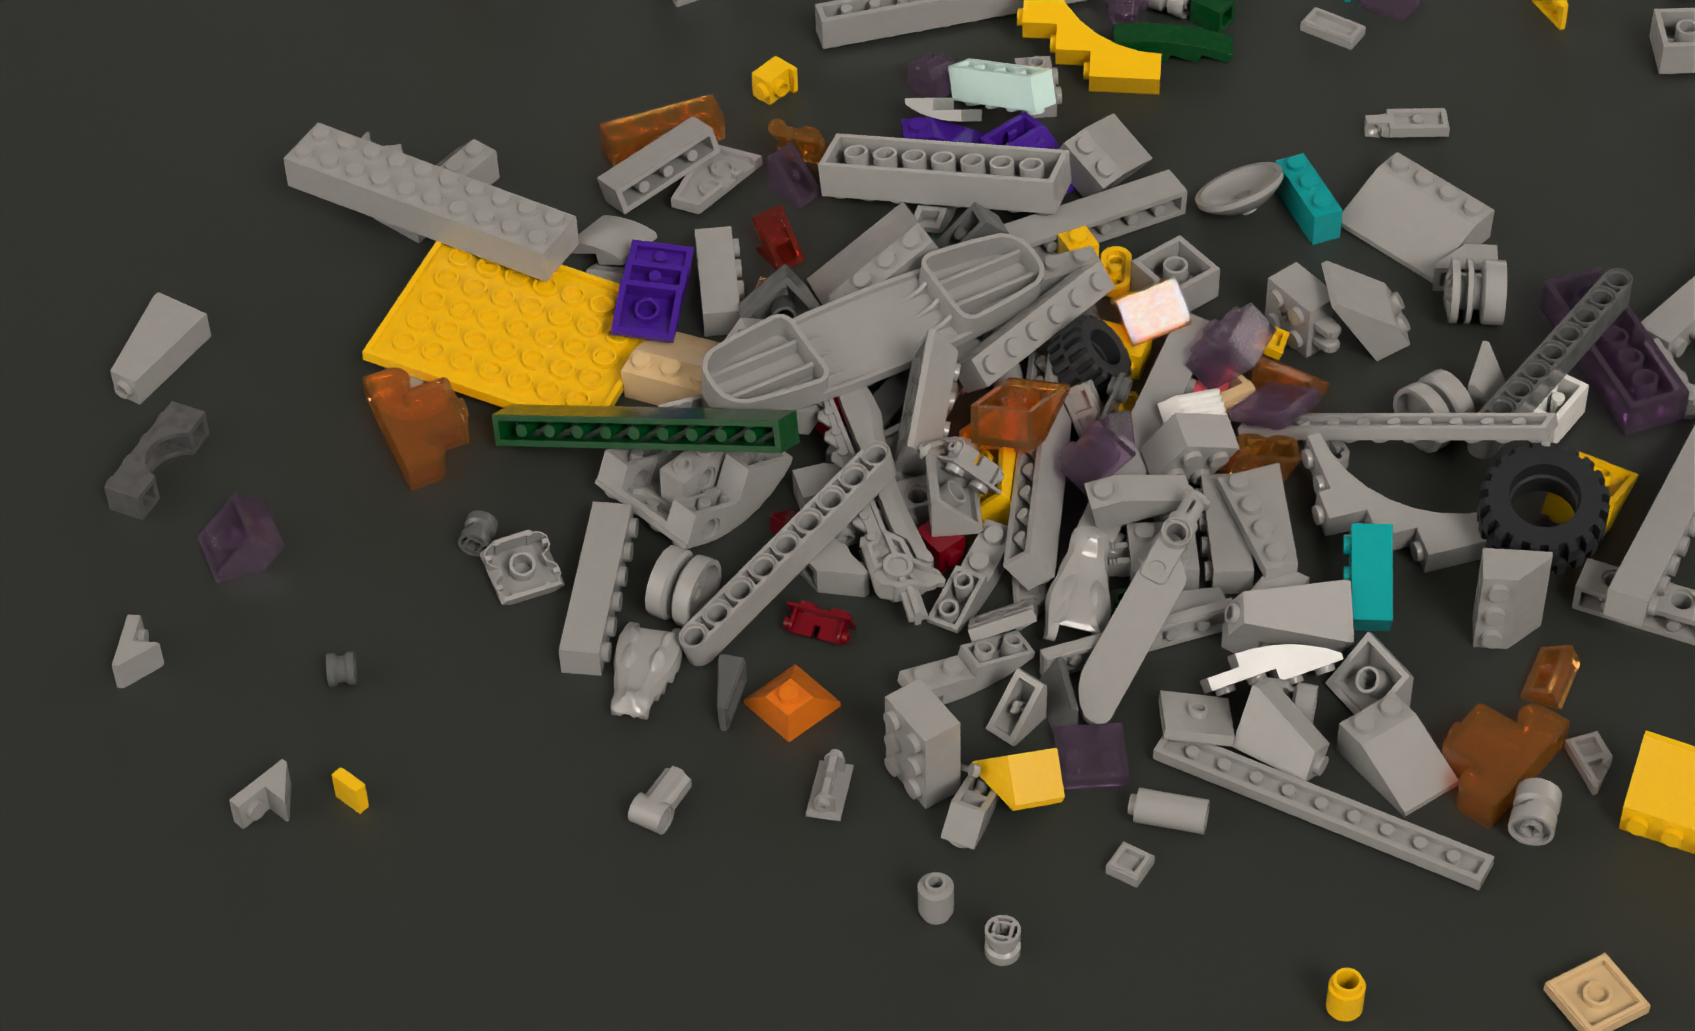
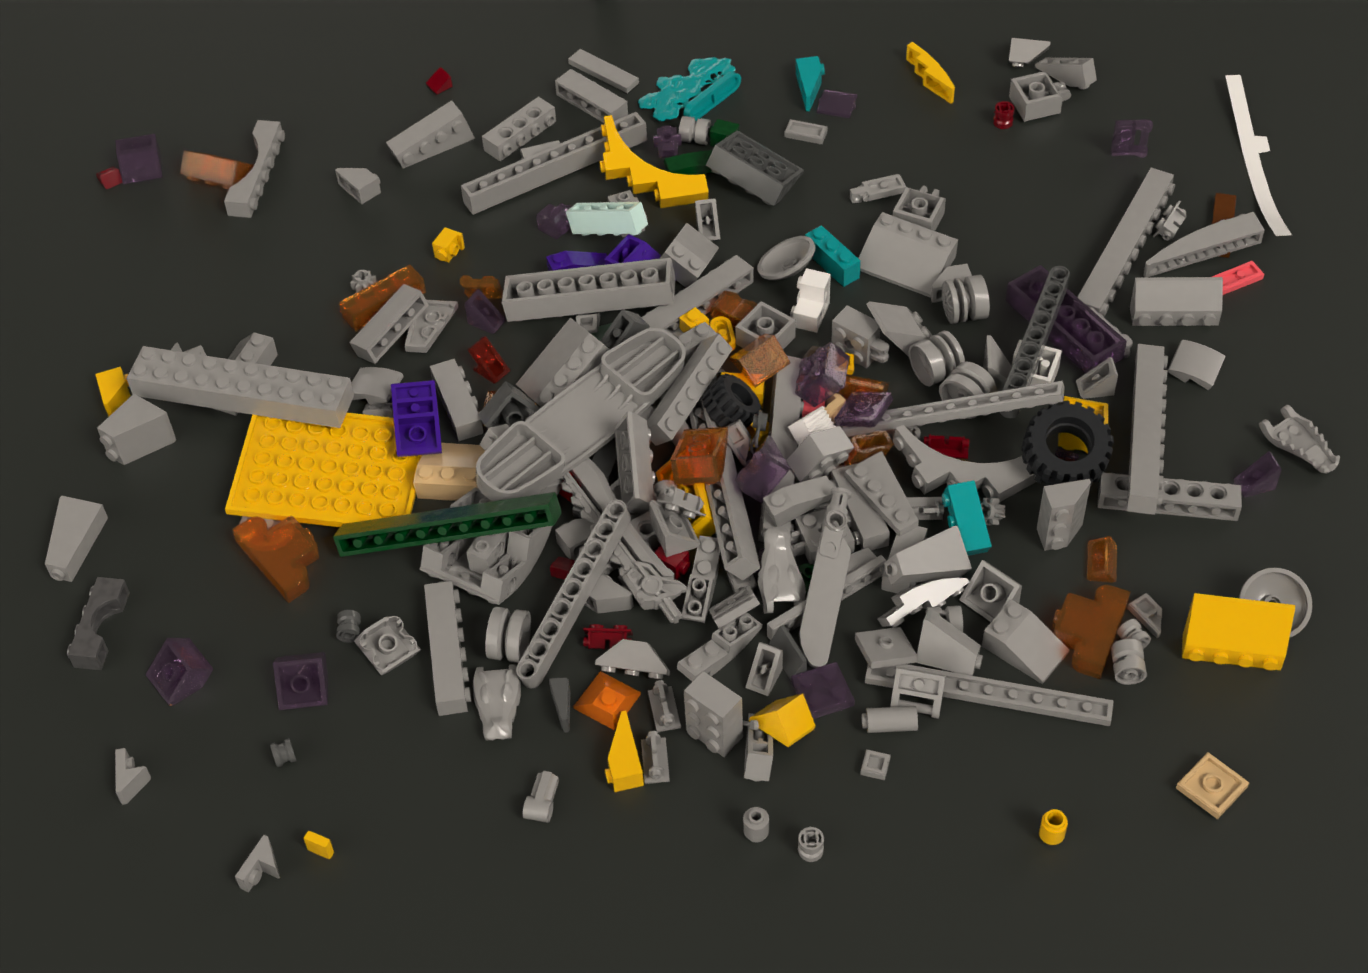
camera: 15 degrees left, 5 degrees up
(266, 177) = (113, 388): none -> yellow slope
(278, 231) = (135, 430): none -> light grey slope
(394, 587) = (301, 680): none -> clear purple slope
(642, 101) = (362, 280): none -> light grey gear
(786, 775) = (623, 758): none -> yellow slope
(843, 655) = (633, 658): none -> light grey slope
(864, 726) = (664, 707): none -> light grey hinge
(936, 447) = (654, 493): light grey piece -> none
(943, 109) = (568, 243): light grey slope -> none
(1138, 235) = (732, 307): none -> clear orange brick
(1147, 115) = (707, 218): none -> light grey slope
(1224, 773) = (918, 684): none -> light grey plate
(1236, 59) = (754, 167): none -> dark grey slope
(1257, 251) = (811, 300): none -> white brick
(1319, 554) = (927, 507): none -> light grey hinge
(1390, 482) = (953, 447): none -> dark red hinge
(1402, 358) = (935, 357): none -> light grey wheel
(1411, 577) = (992, 511): none -> light grey gear
(1458, 158) = (921, 207): none -> light grey hinge
(1559, 772) = (1132, 630): none -> light grey wheel
(1630, 58) = (1003, 115): none -> dark red wheel
(1633, 441) = (1099, 381): none -> light grey slope

